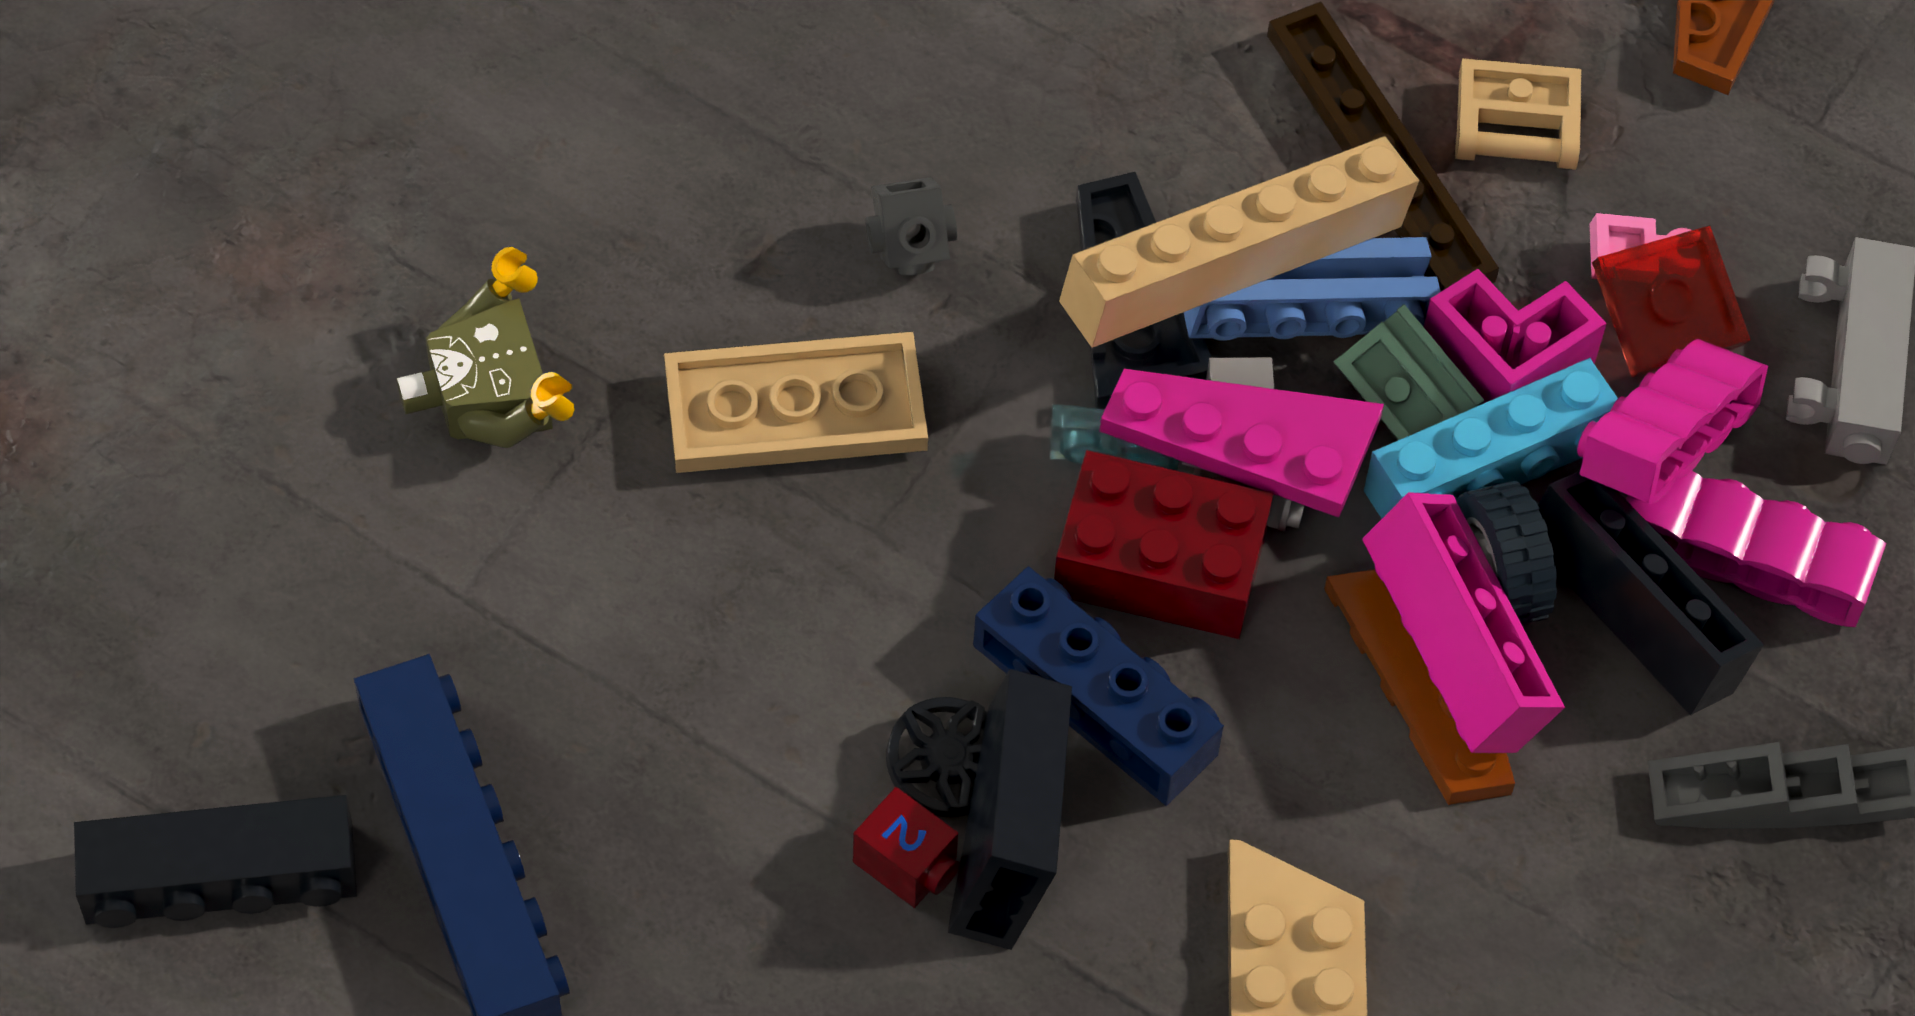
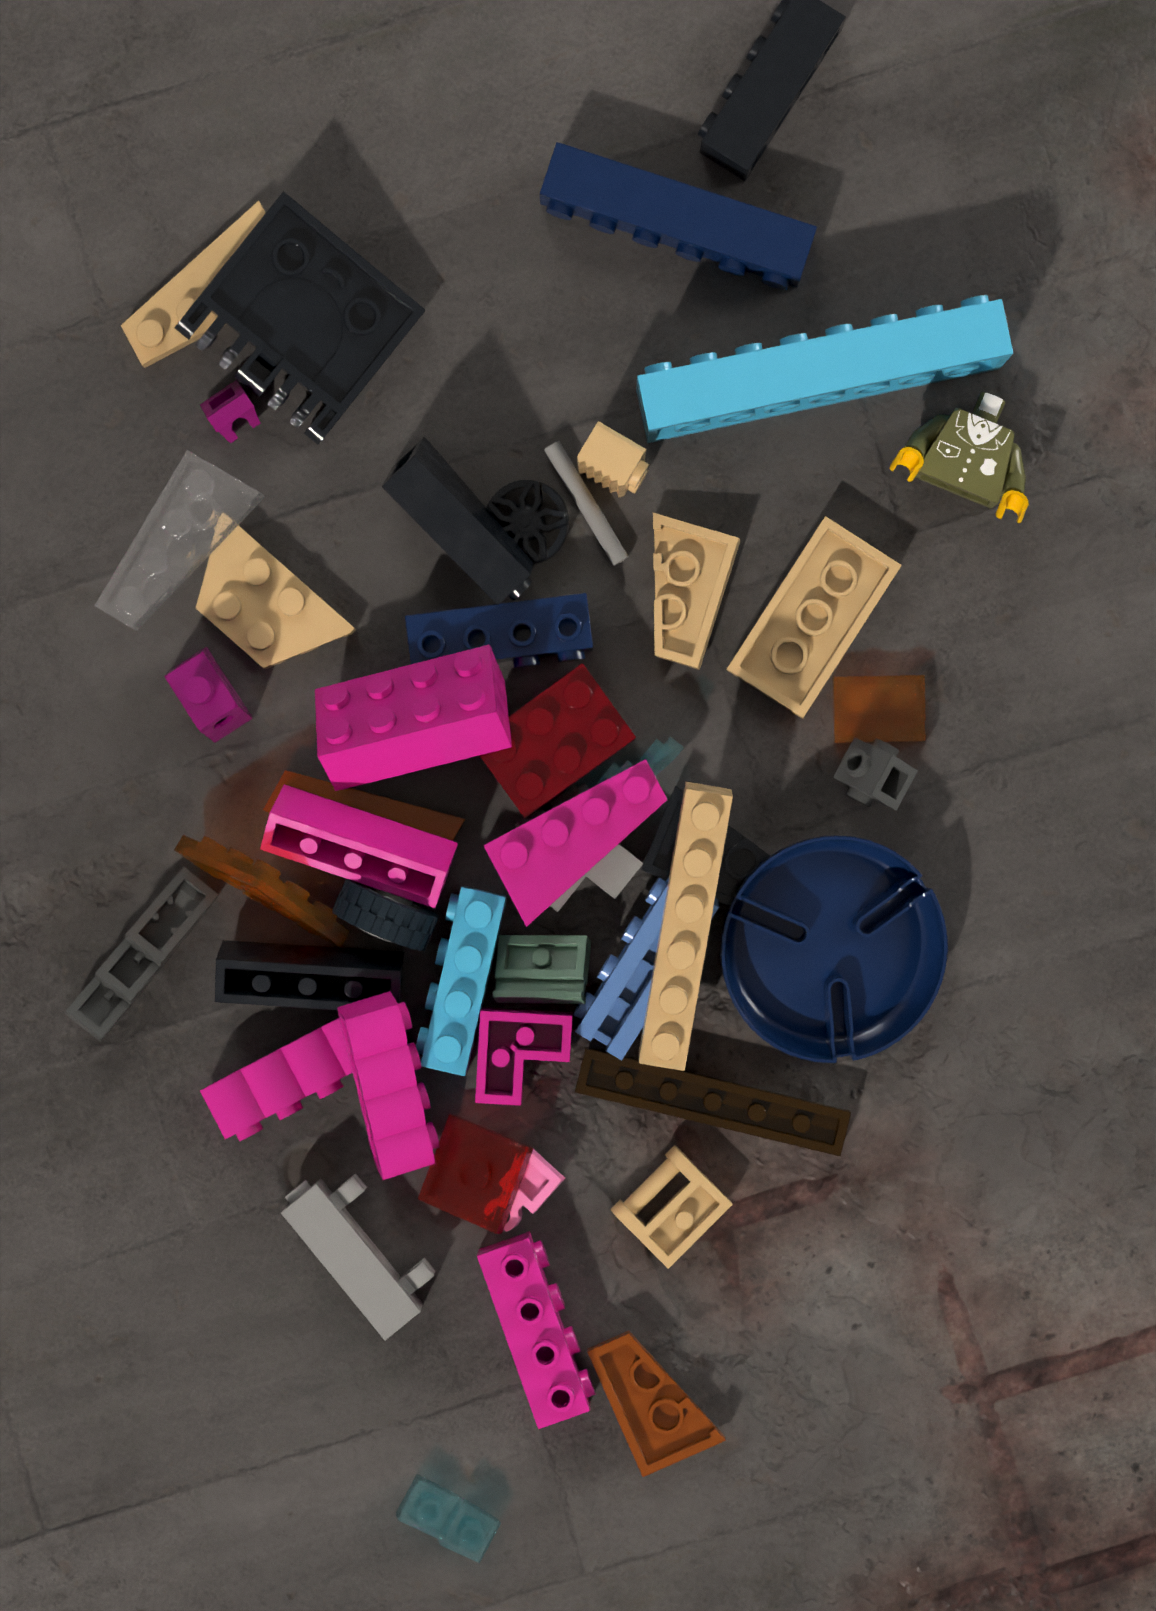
camera: 135 degrees right, 30 degrees up
(522, 562) = (823, 369): none -> medium azure brick
(806, 694) = (613, 460): none -> tan brick
(835, 282) = (879, 708): none -> clear orange plate
(870, 715) = (586, 503): none -> light grey piece
(871, 542) = (689, 586): none -> tan wing
(906, 848) = (484, 450): dark red brick -> none
(1120, 128) = (833, 948): none -> dark blue piece
(1275, 673) = (412, 718): none -> dark pink brick
(1452, 920) = (208, 695): none -> magenta torso
(1600, 705) = (263, 885): none -> clear orange plate
(1760, 142) = (535, 1330): none -> dark pink brick

